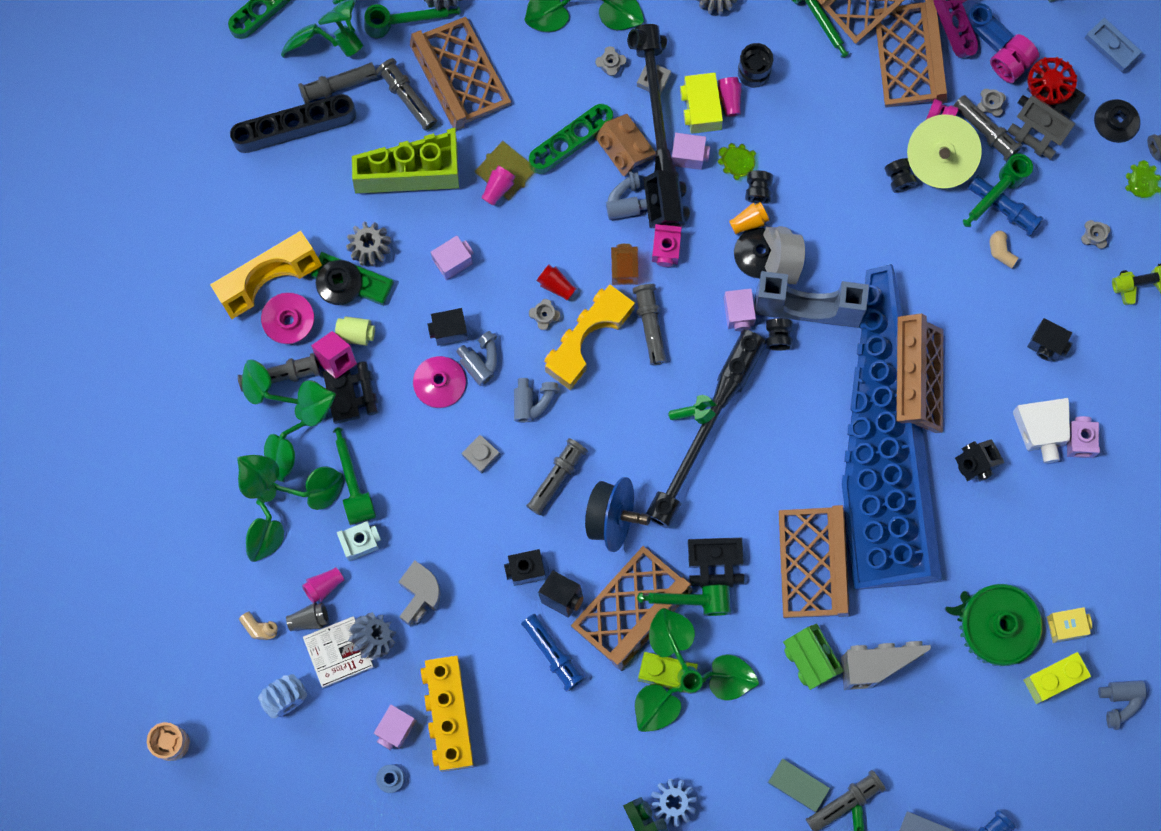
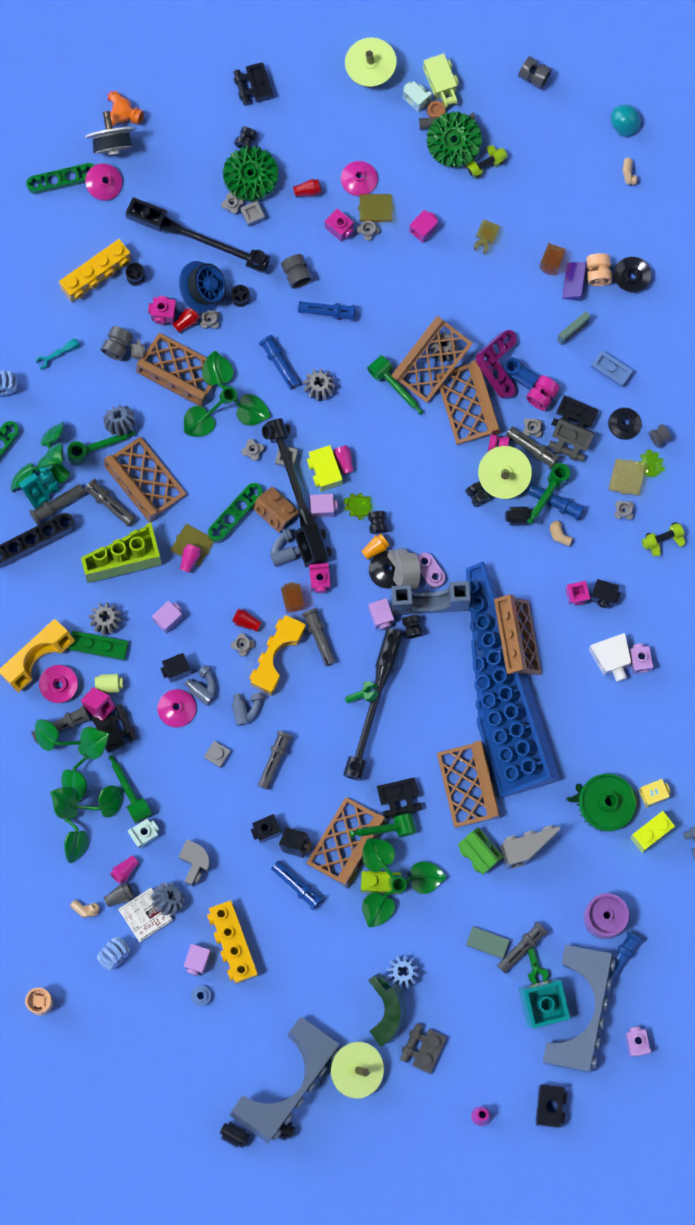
camera: 15 degrees left, 0 degrees up
(310, 57) = (34, 488): none -> teal plate
(342, 292) = (92, 658): black piece -> none
(611, 512) = (319, 777): piece -> none
(755, 65) = (357, 433): black wheel -> none
(817, 263) = (429, 570): none -> lavender plate
(950, 214) = (518, 516): none -> black brick
(979, 460) = (570, 689): black brick -> none
(987, 777) = (602, 927): none -> medium lavender wheel
(1012, 332) = (577, 593): none -> dark pink brick
(1052, 80) = (572, 404): red wheel -> none
(1108, 191) = (627, 477): none -> clear yellow piece

